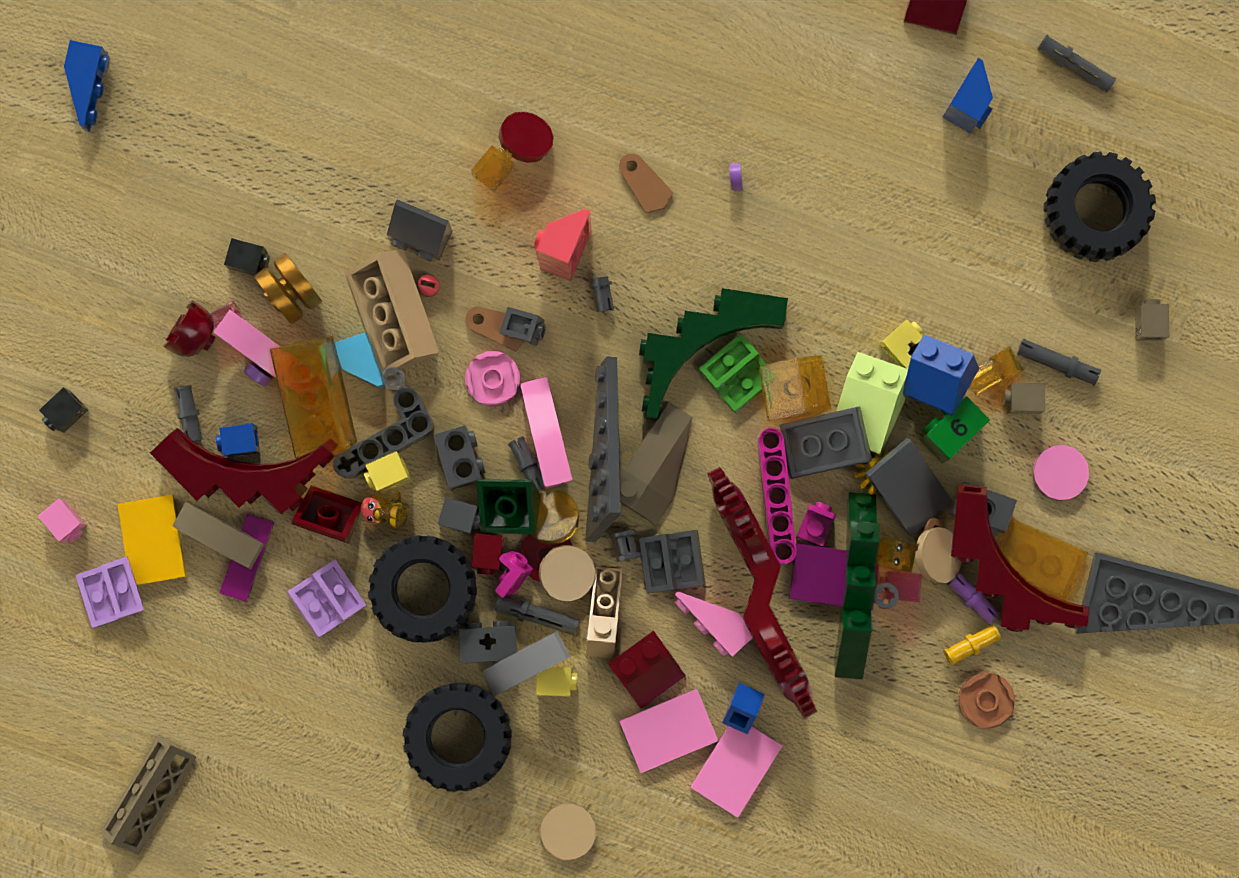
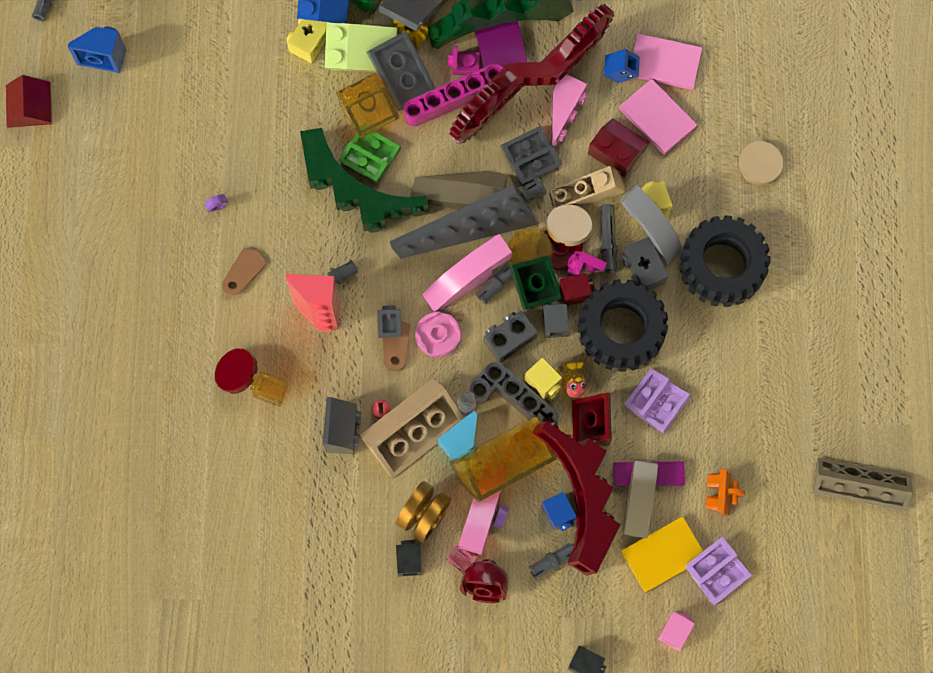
camera: 110 degrees left, 10 degrees down
(190, 633) = (722, 502): none -> orange hips

